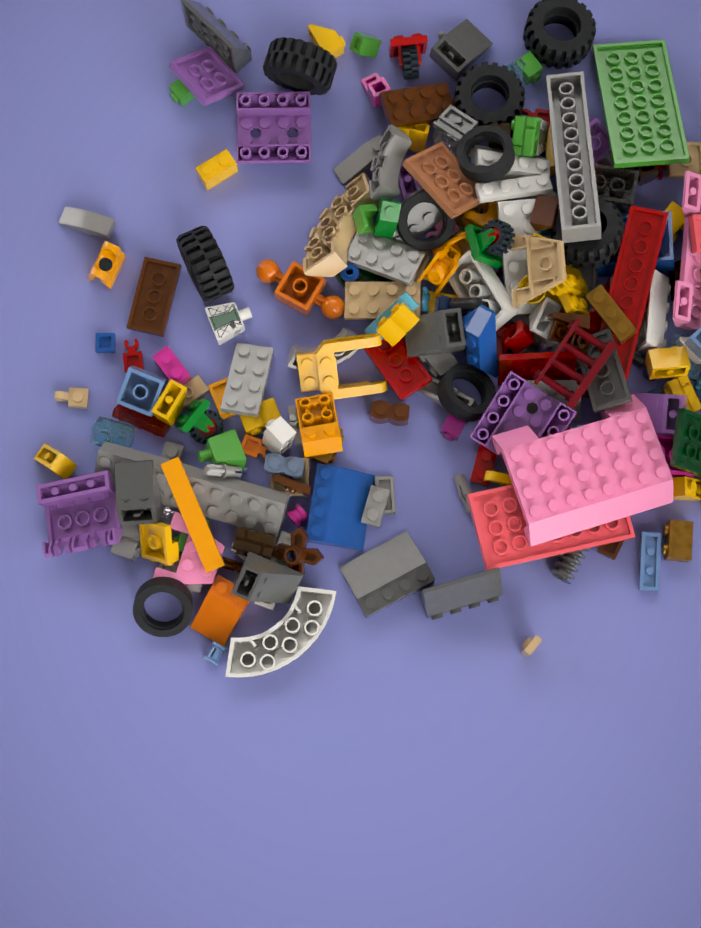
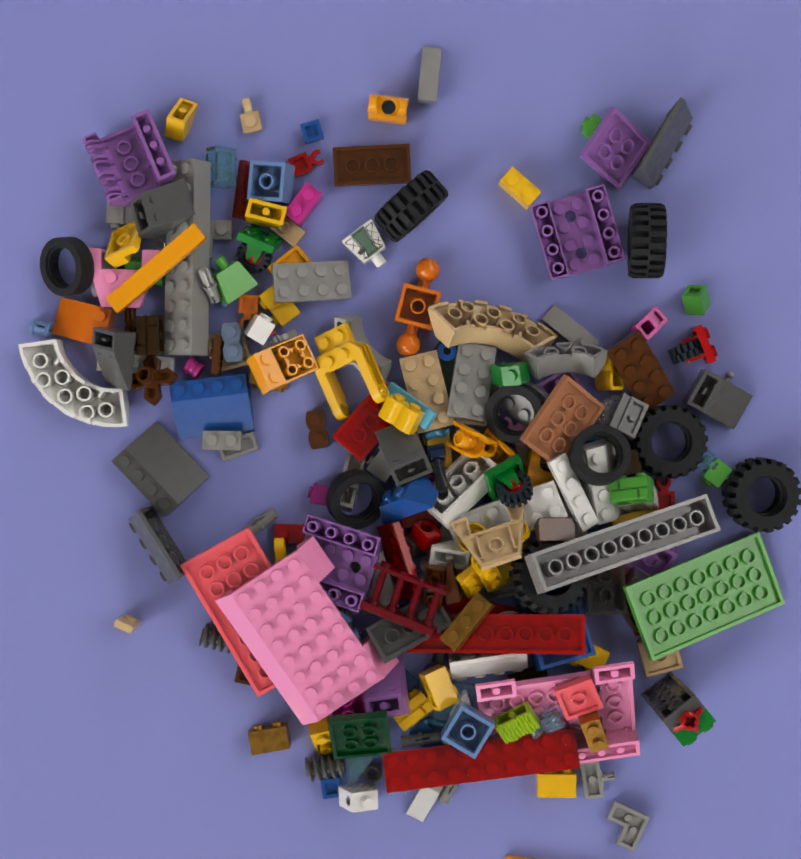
camera: 75 degrees right, 10 degrees up
(327, 39) = (687, 260): yellow slope -> none
(363, 218) = (502, 351): bright green panel -> none
(649, 561) = (242, 715): medium blue plate -> none

